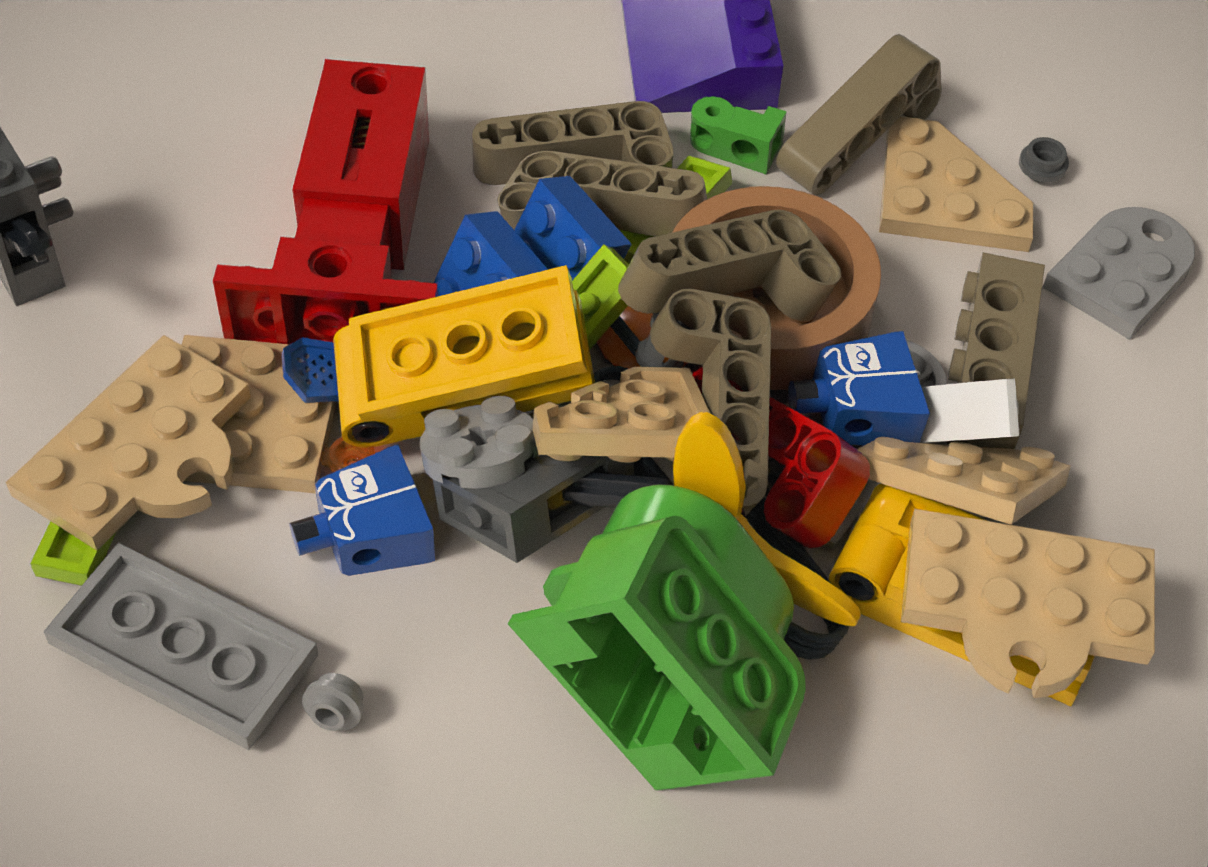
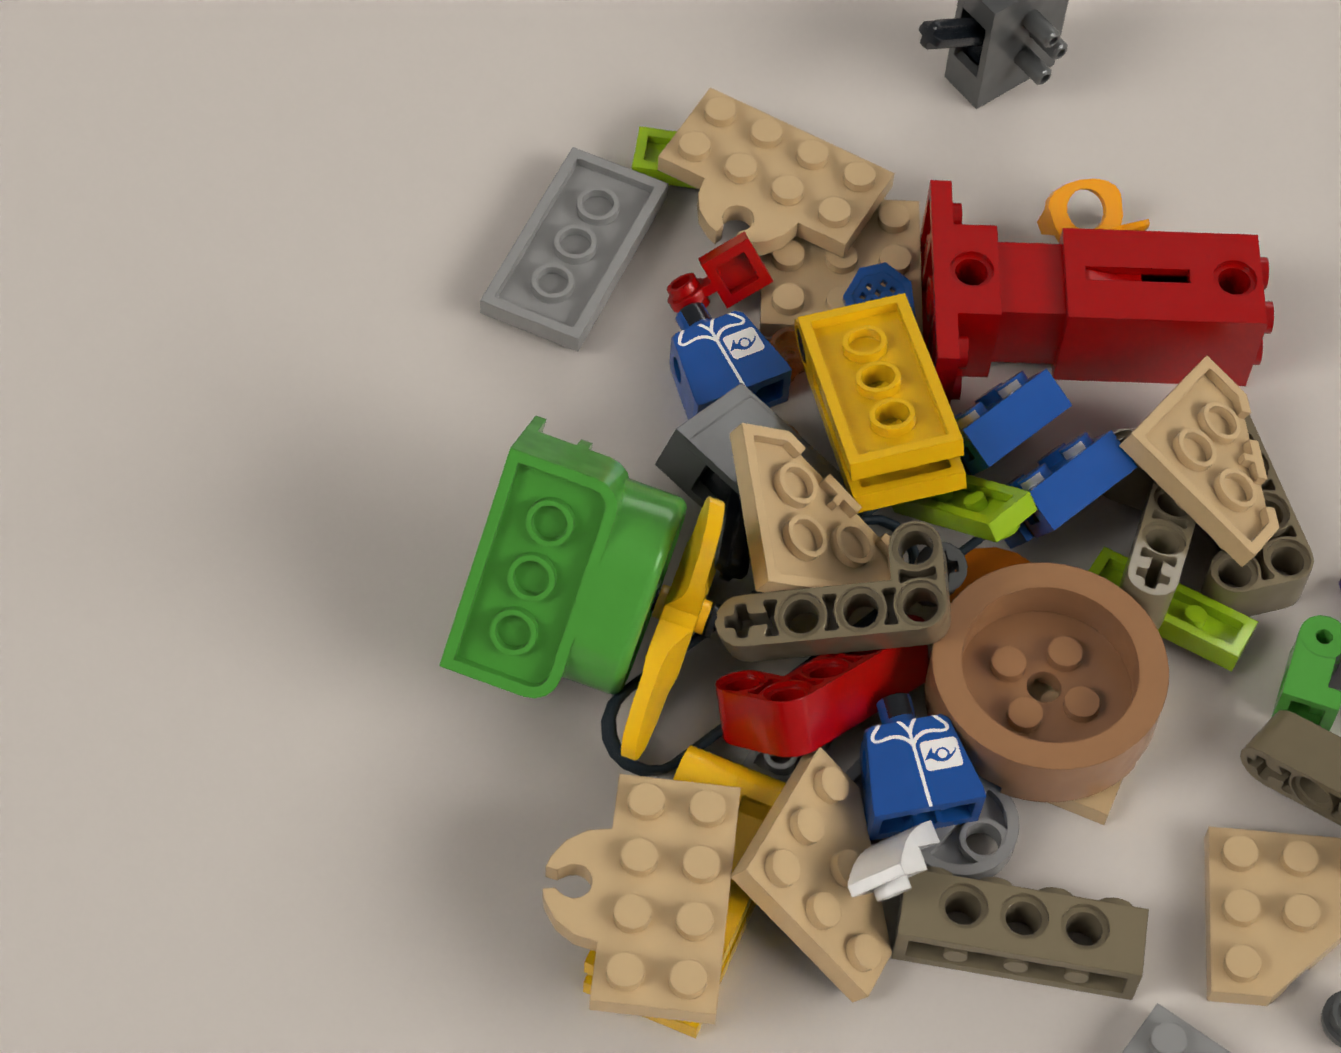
camera: 85 degrees right, 5 degrees up
(260, 491) = (731, 271): none -> red plate
(263, 202) = (1056, 216): none -> light orange hair
(334, 702) = (523, 362): light grey plate -> none
(478, 443) = (778, 390): light grey plate -> none
(551, 138) = (1206, 462): none -> tan plate
(734, 256) = (1008, 601): dark tan beam -> none

